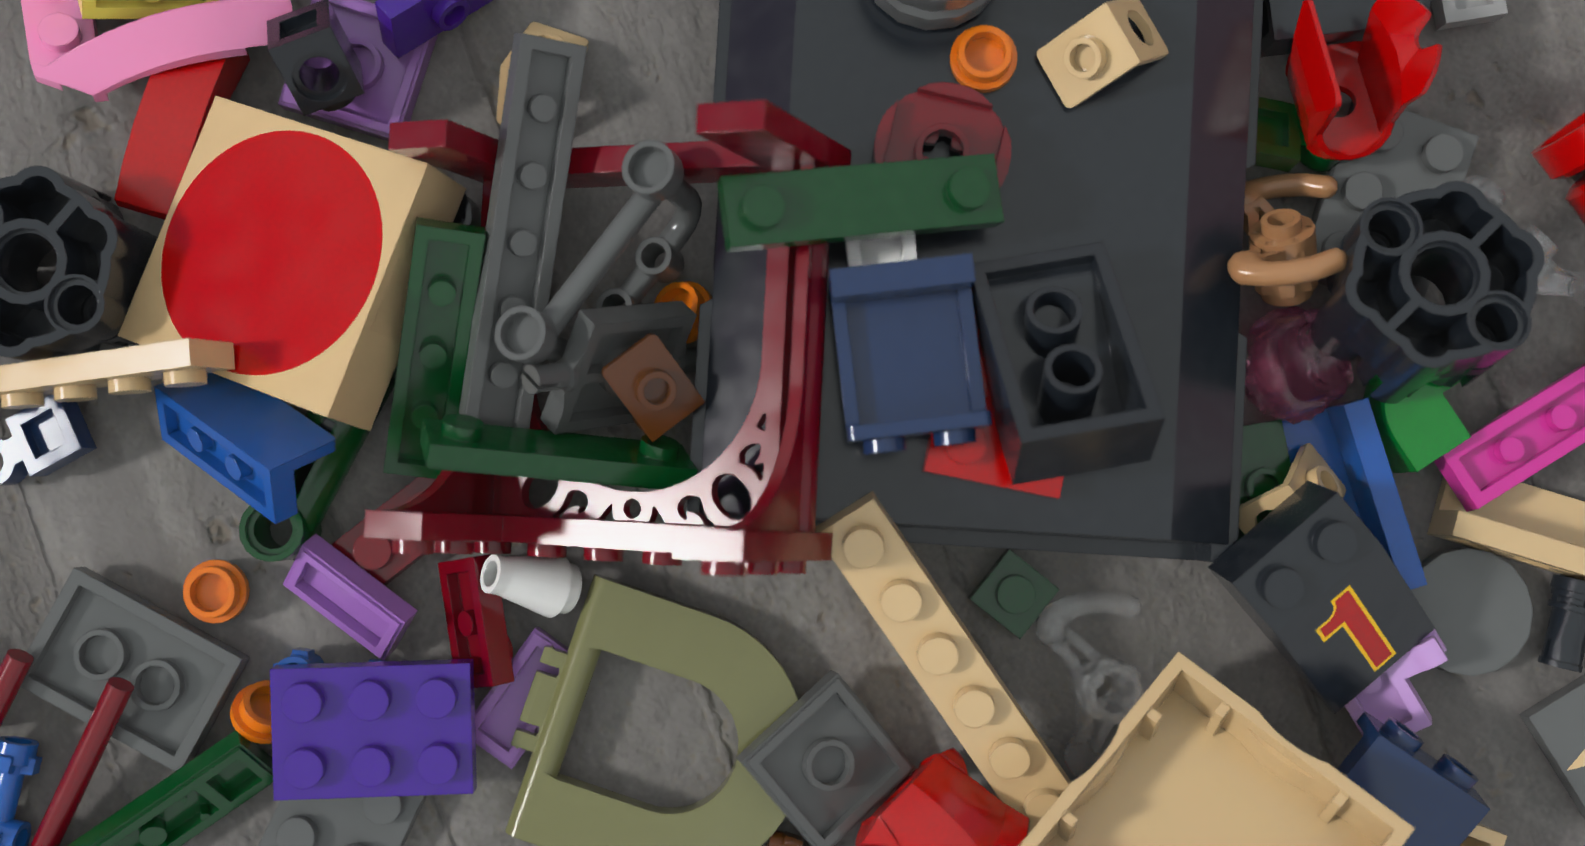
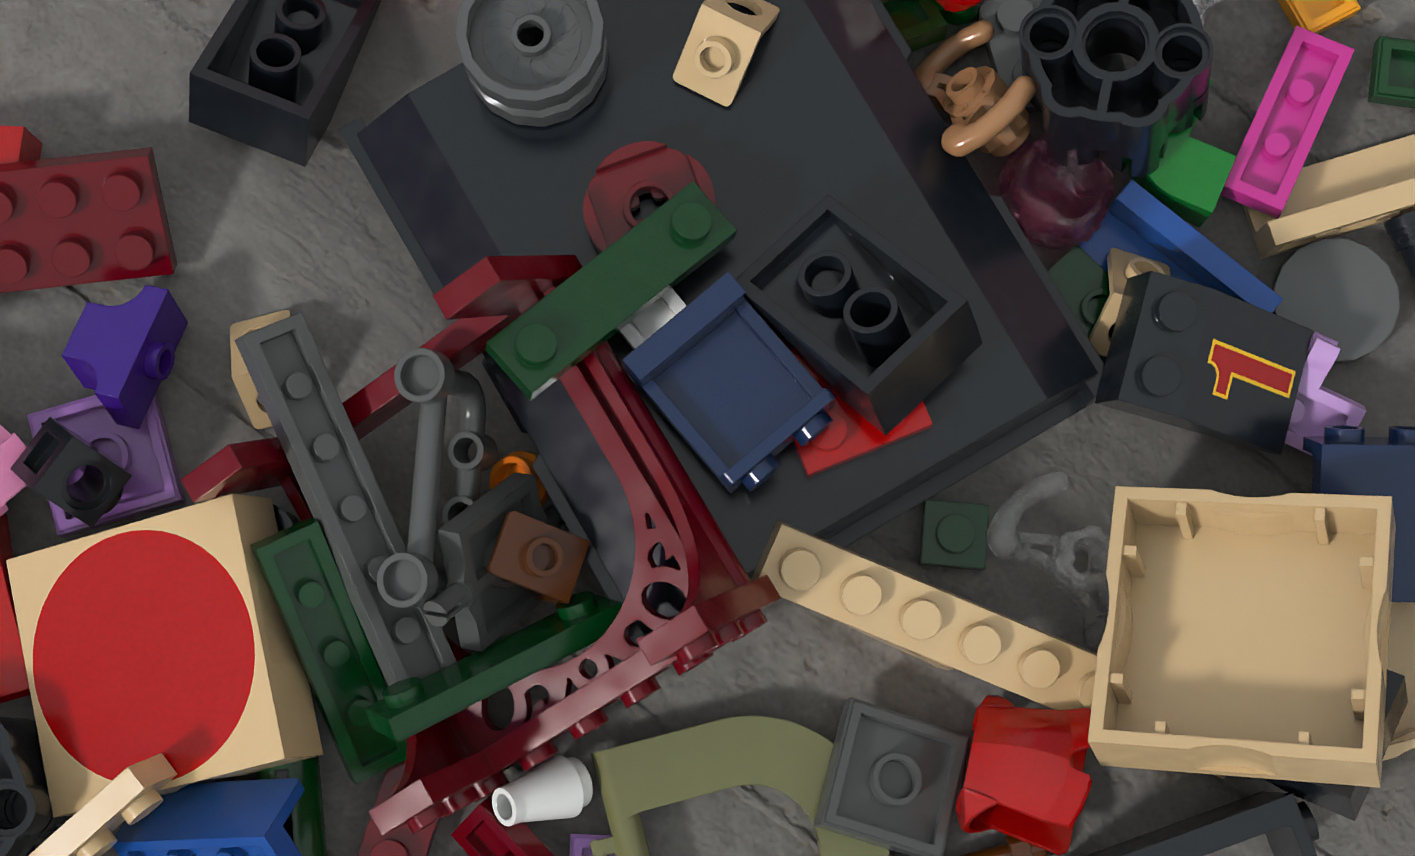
camera: 30 degrees left, 5 degrees down
(983, 58) = (633, 111): orange plate -> none

